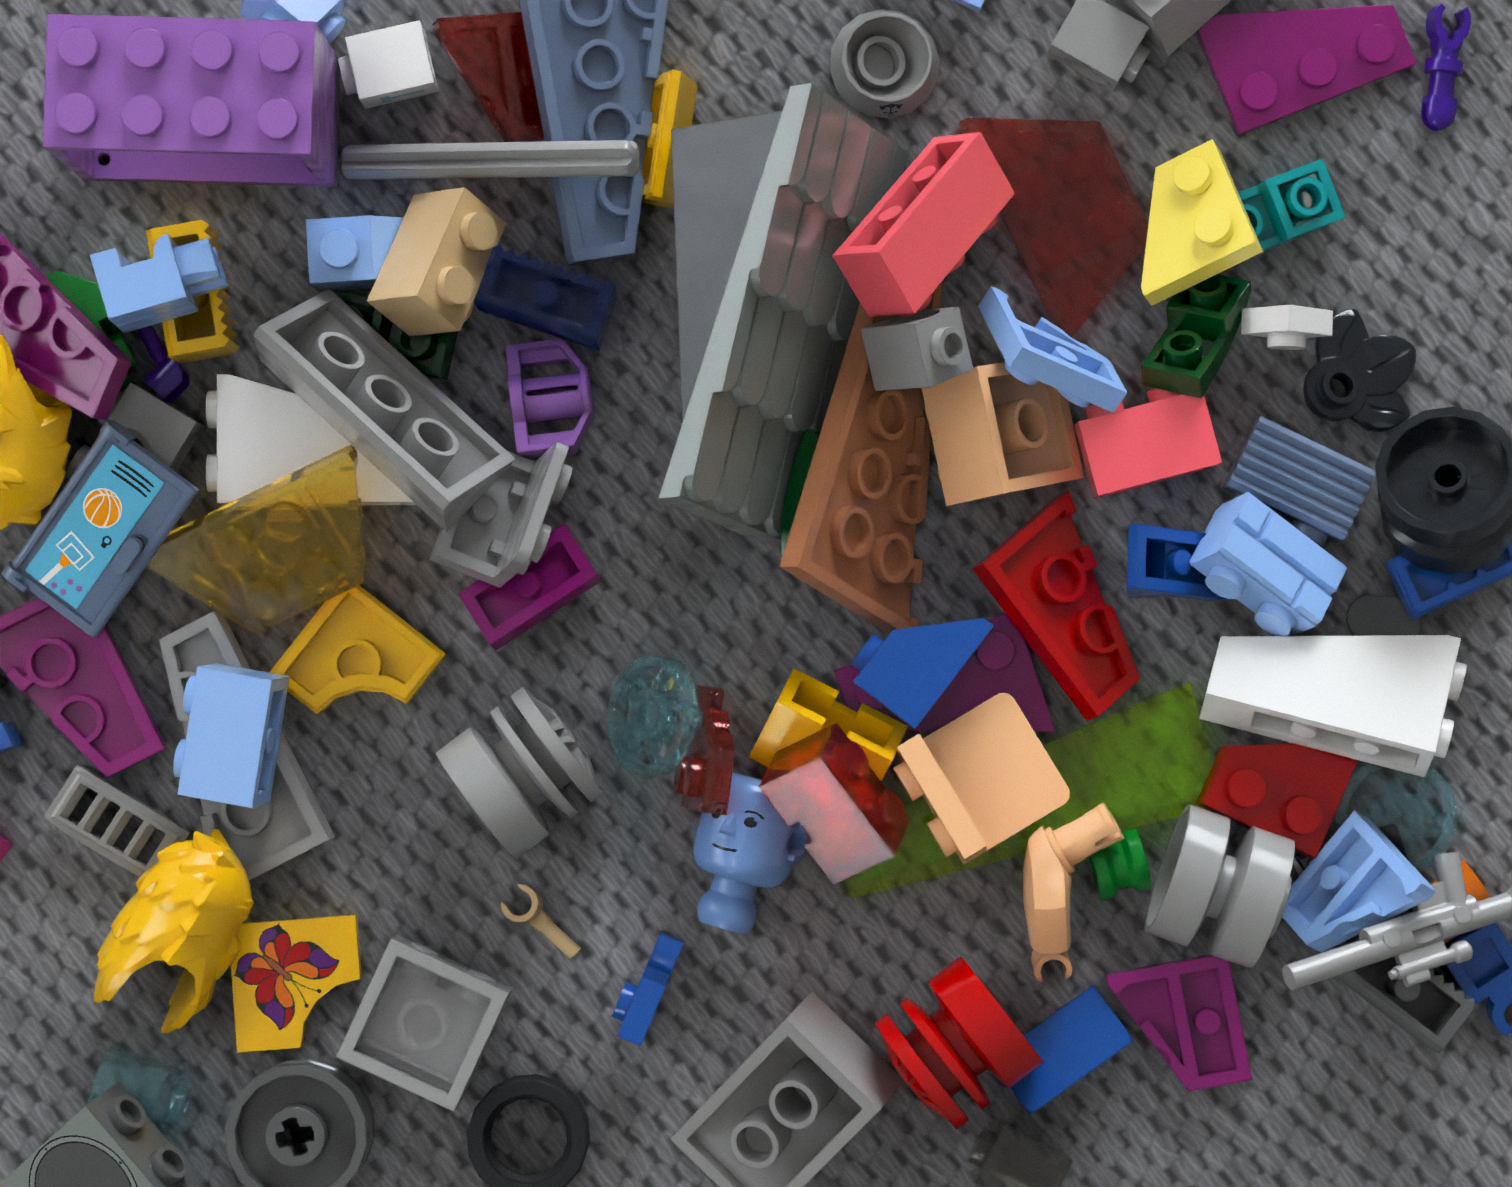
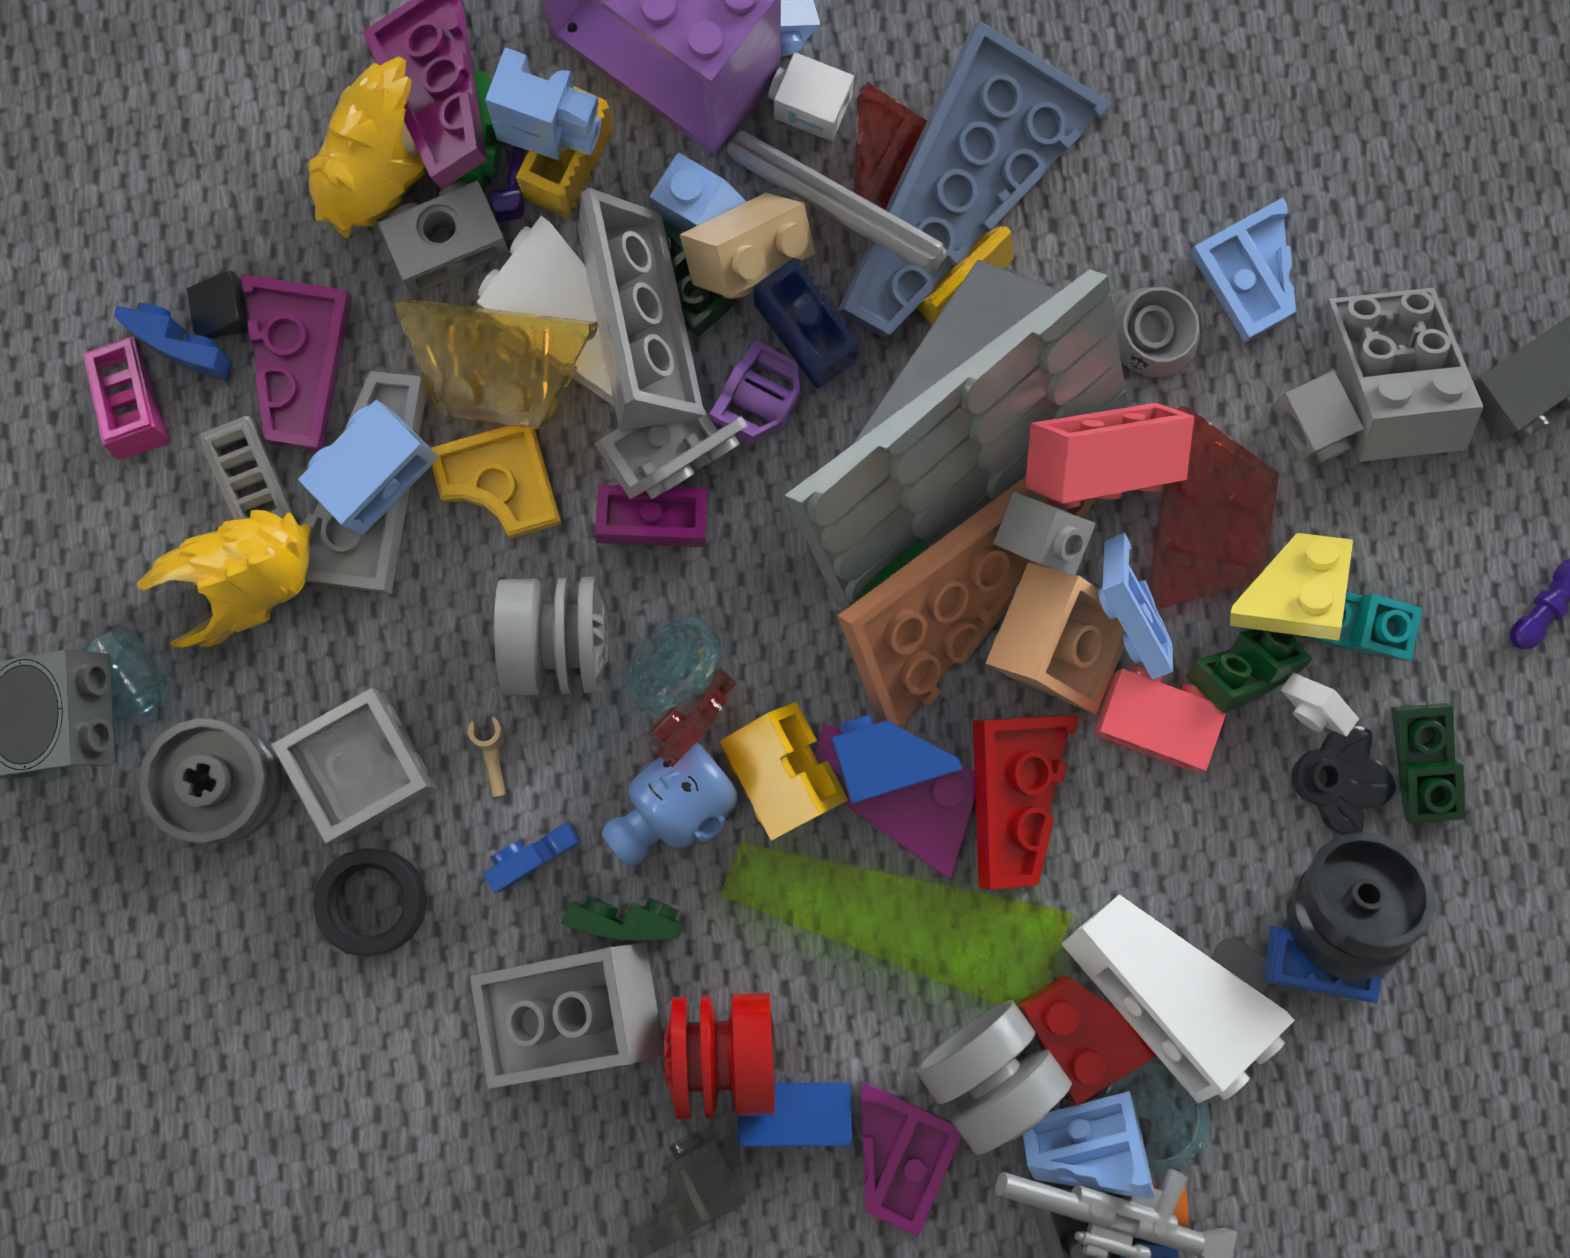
camera: 30 degrees right, 5 degrees down
(85, 545) = (376, 259): door -> none
(285, 973) = (286, 664): yellow tile -> none
(797, 975) = (641, 923): none -> dark green slope
(838, 802) = (759, 816): clear red brick -> none
(981, 777) = (875, 874): light nougat bracket -> none
(1048, 881) = (872, 982): light nougat arm -> none
(1120, 866) = (930, 1007): green wheel -> none
(1161, 564) = (1121, 820): blue slope -> none
(1267, 566) = (1188, 868): light blue brick -> none
(1299, 58) = (1450, 529): magenta wing -> none
(1300, 480) = (1249, 824): sand blue brick -> none
(1427, 302) = (1426, 763): none -> dark green slope

